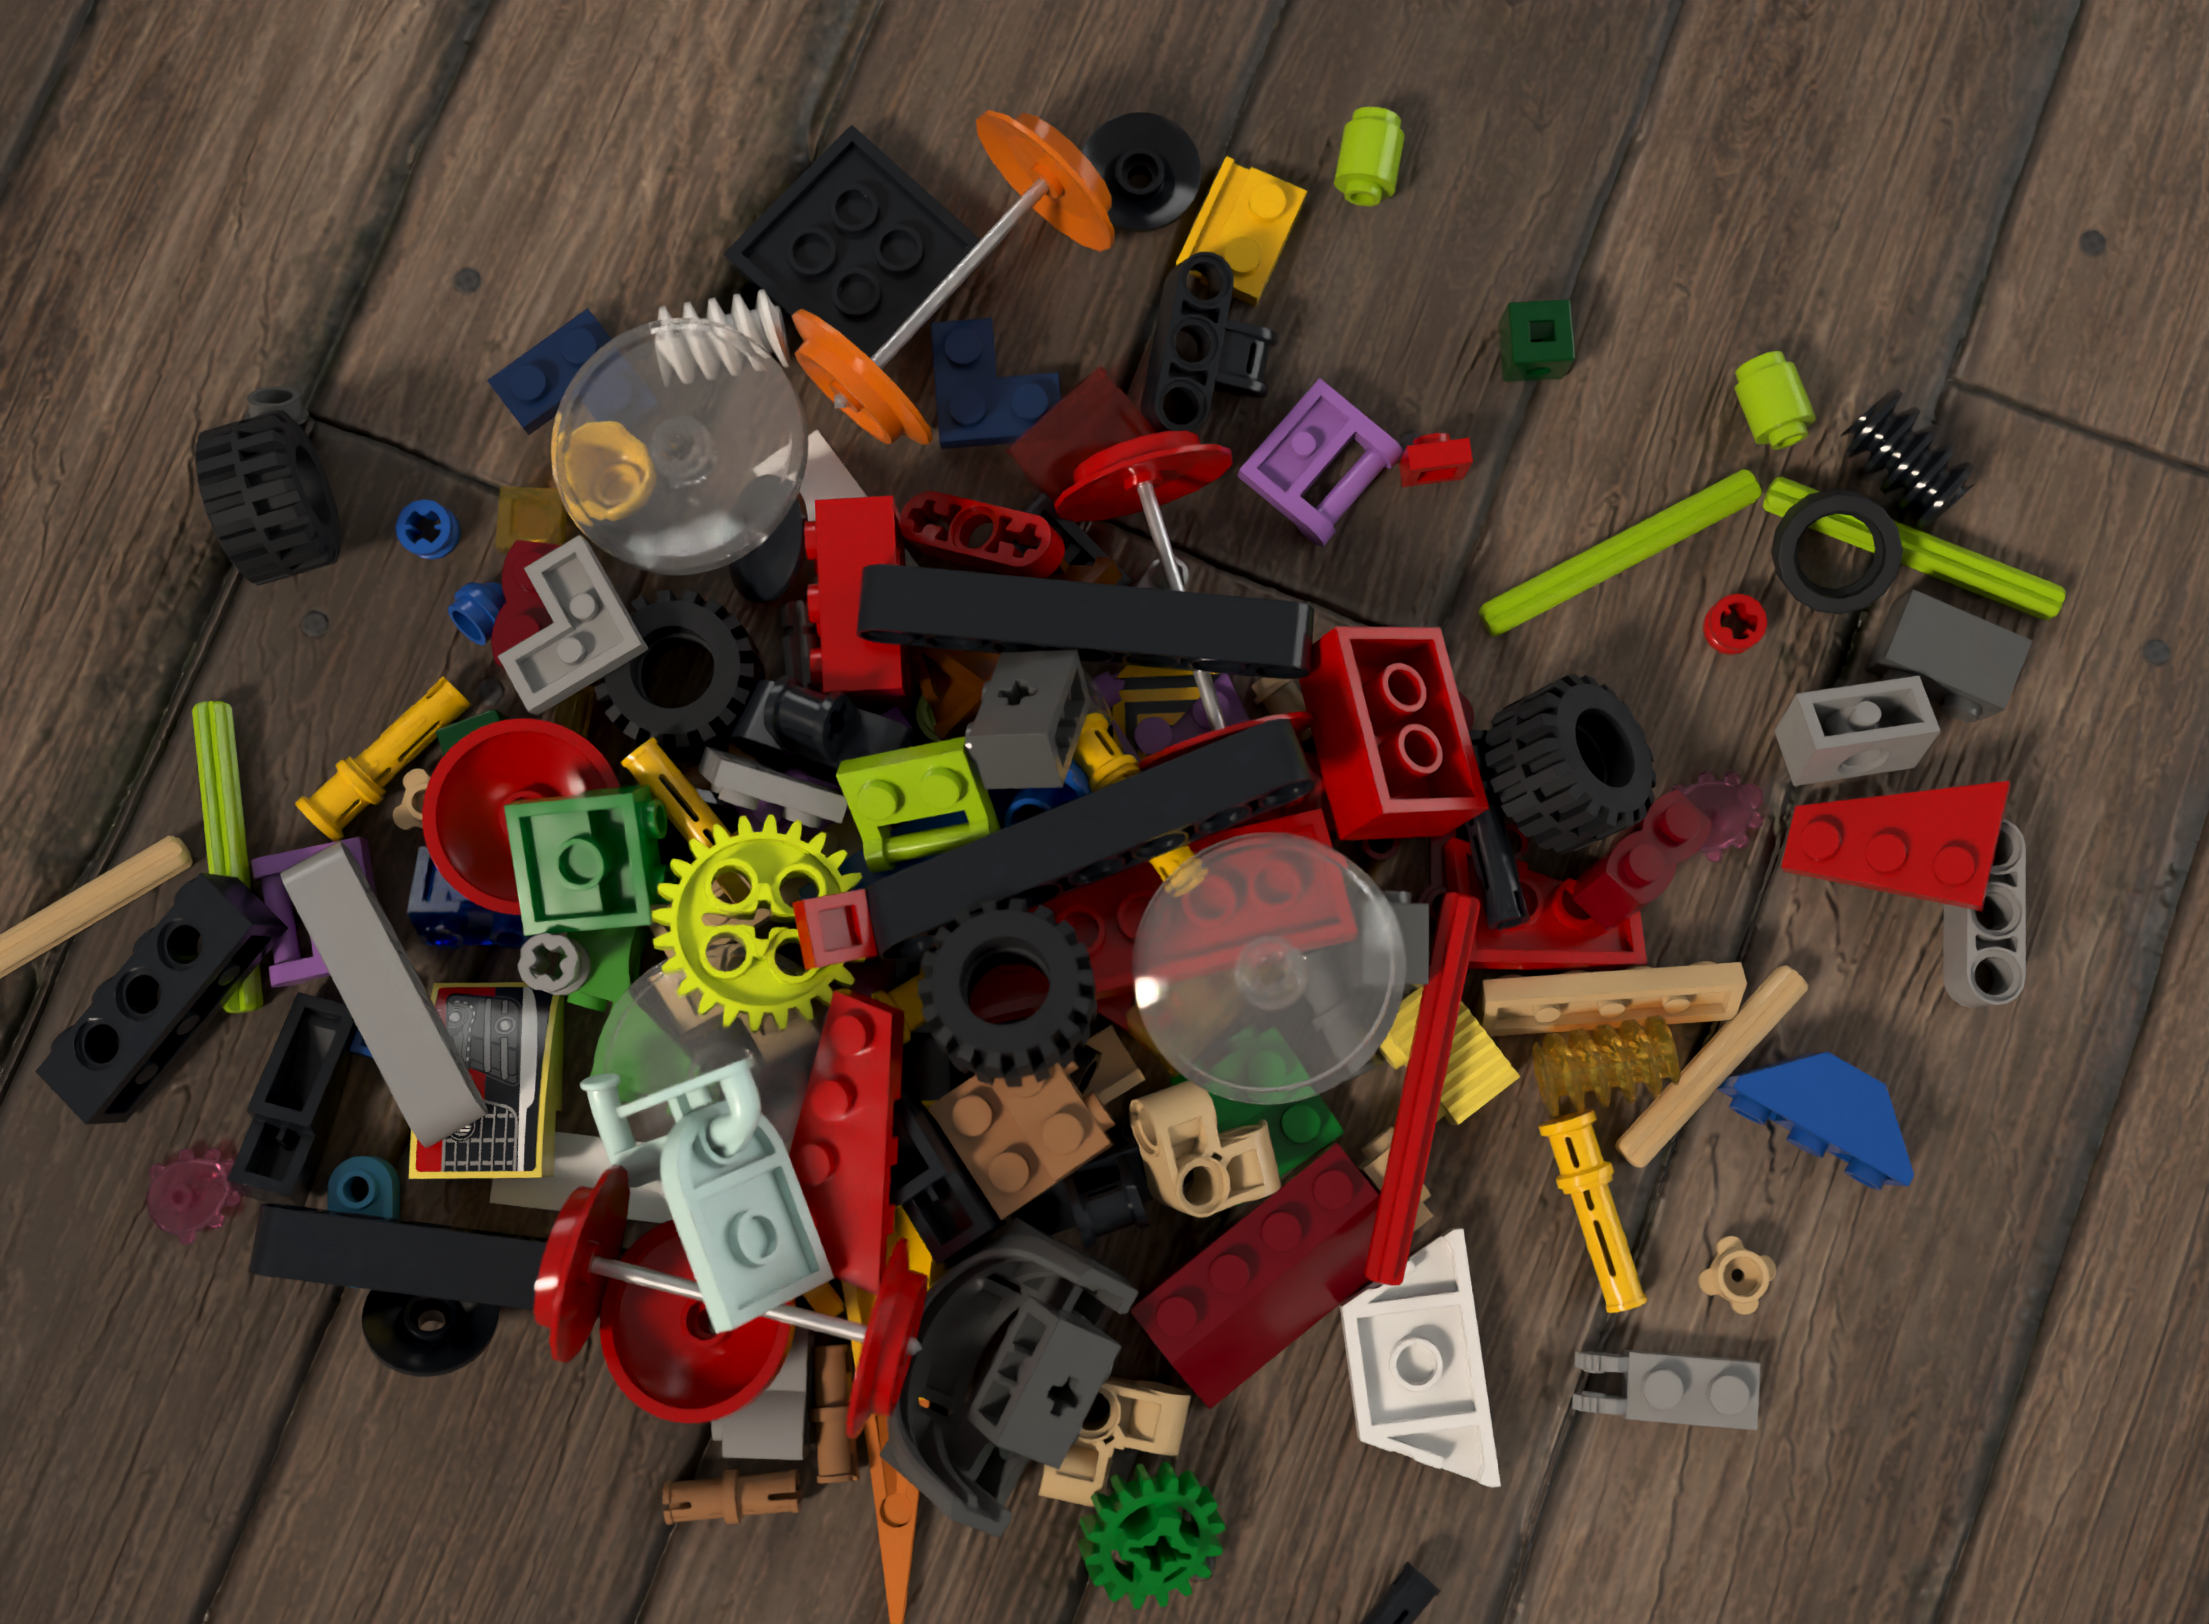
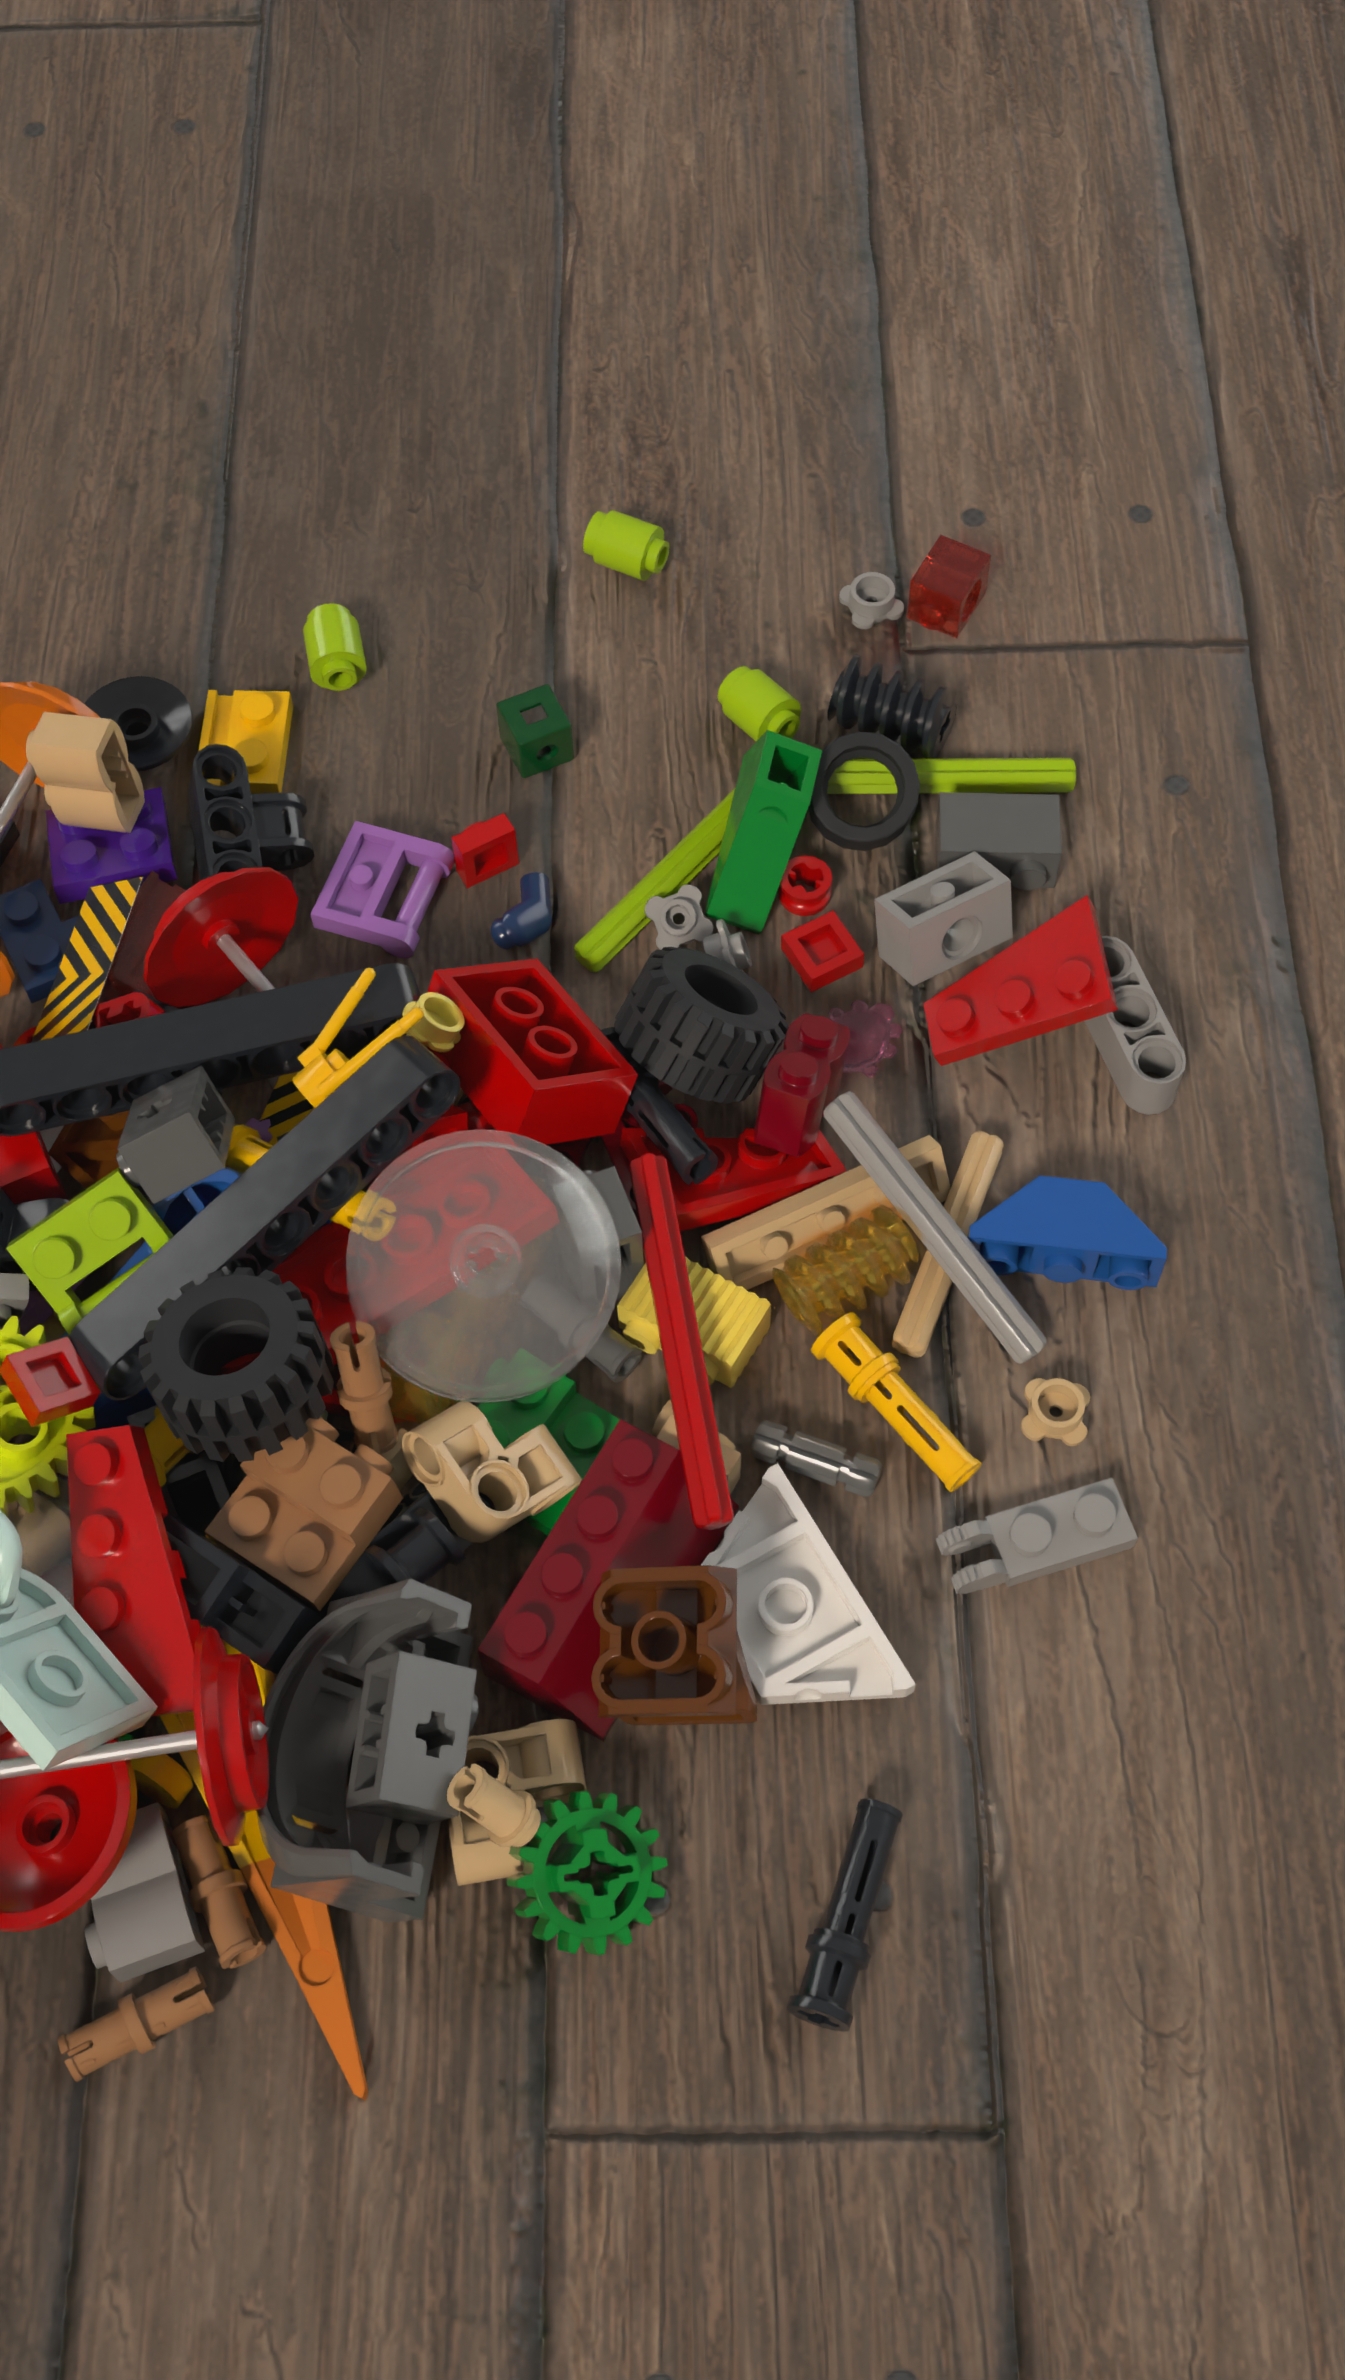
camera: 20 degrees left, 20 degrees down
(996, 463) = (87, 959): none -> sticker
(1071, 242) = (86, 771): none -> tan brick
(1071, 306) = (101, 857): none -> dark purple plate
(1100, 1477) = (506, 1814): none -> tan pin
(1116, 1041) = (364, 1386): none -> medium nougat pin
(1199, 709) = (326, 1073): none -> yellow plant
(1299, 1383) = (671, 1647): none -> reddish brown piece
(1314, 687) = (440, 1024): none -> light yellow plate
(1450, 553) = (527, 919): none -> dark blue arm
(1500, 1229) = (816, 1458): none -> dark grey axle
(1607, 603) = (684, 902): none -> light grey plate
(1628, 674) = (728, 946): none -> light grey plate
(1704, 1061) = (935, 1227): none -> light grey axle
(1715, 145) = (626, 544): none -> lime brick
(1719, 557) = (762, 829): none -> green slope
(1721, 708) = (822, 951): none -> red plate
(1950, 297) = (871, 600): none -> light grey plate
(2028, 331) = (948, 586): none -> clear red brick

